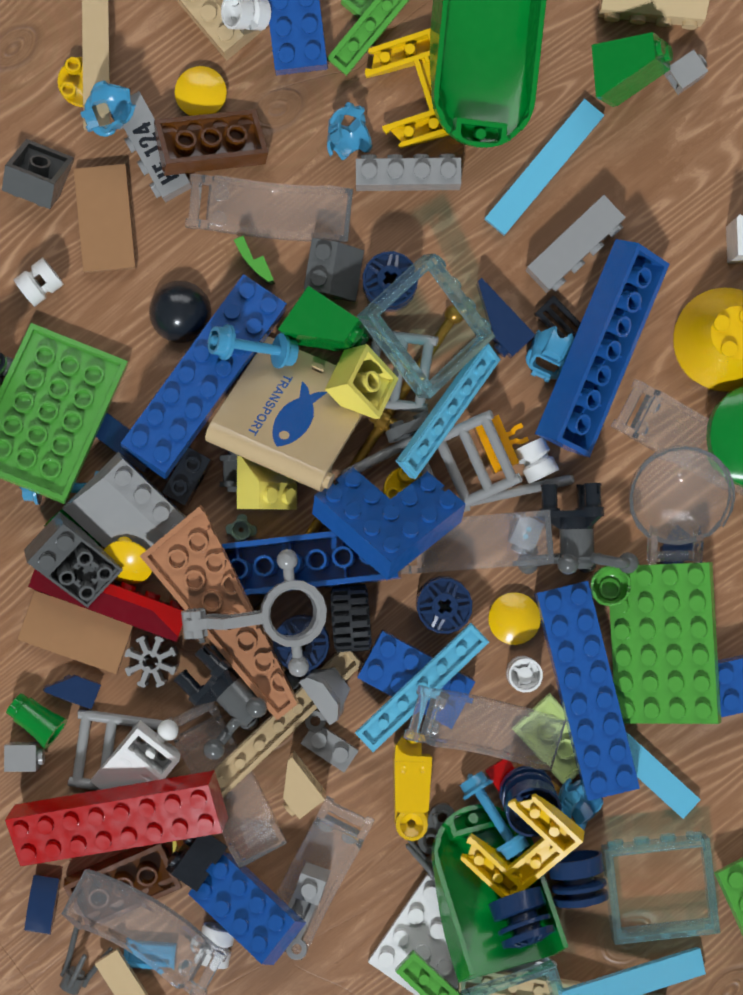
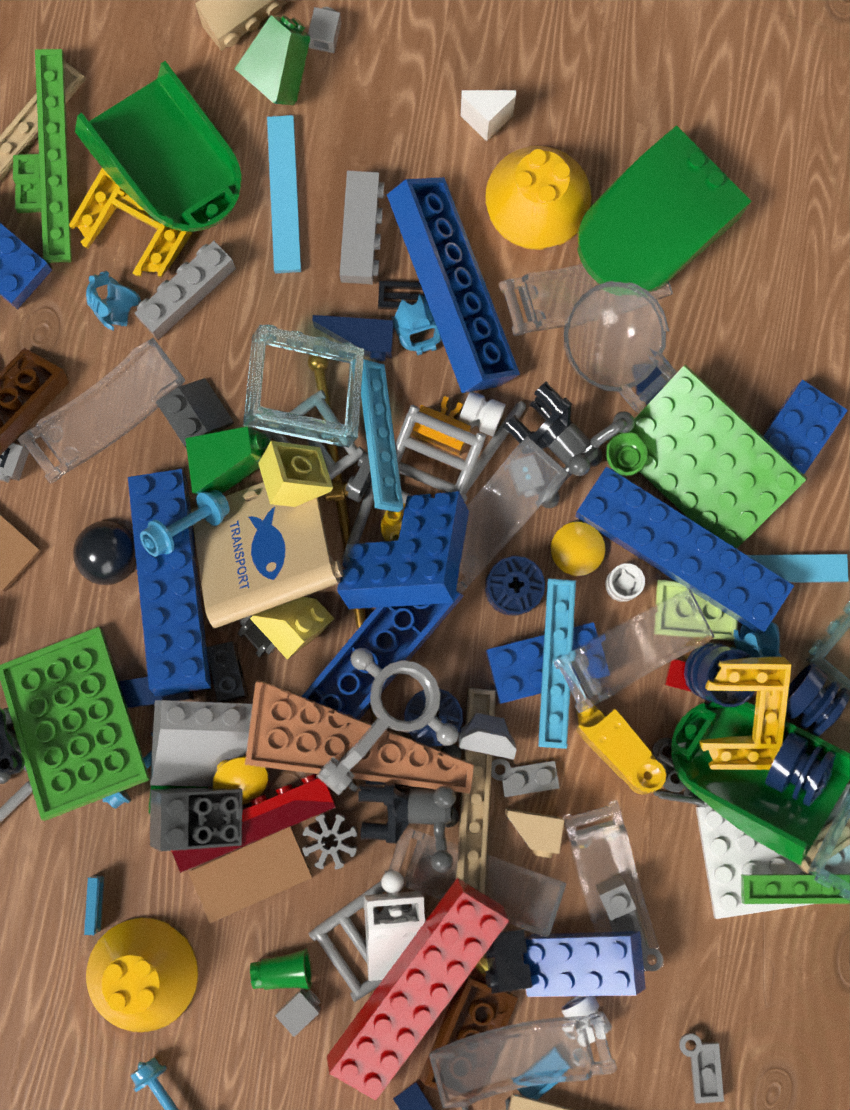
camera: 40 degrees left, 5 degrees down
(75, 690) = (291, 920): dark blue slope -> none
(233, 529) = (300, 669): sand green plate -> none
(258, 265) = (133, 462): bright green slope -> none
(350, 618) = (453, 661): black tyre -> none
(374, 278) = (227, 380): dark blue wheel -> none
(475, 785) = (668, 703): dark azure piece -> none

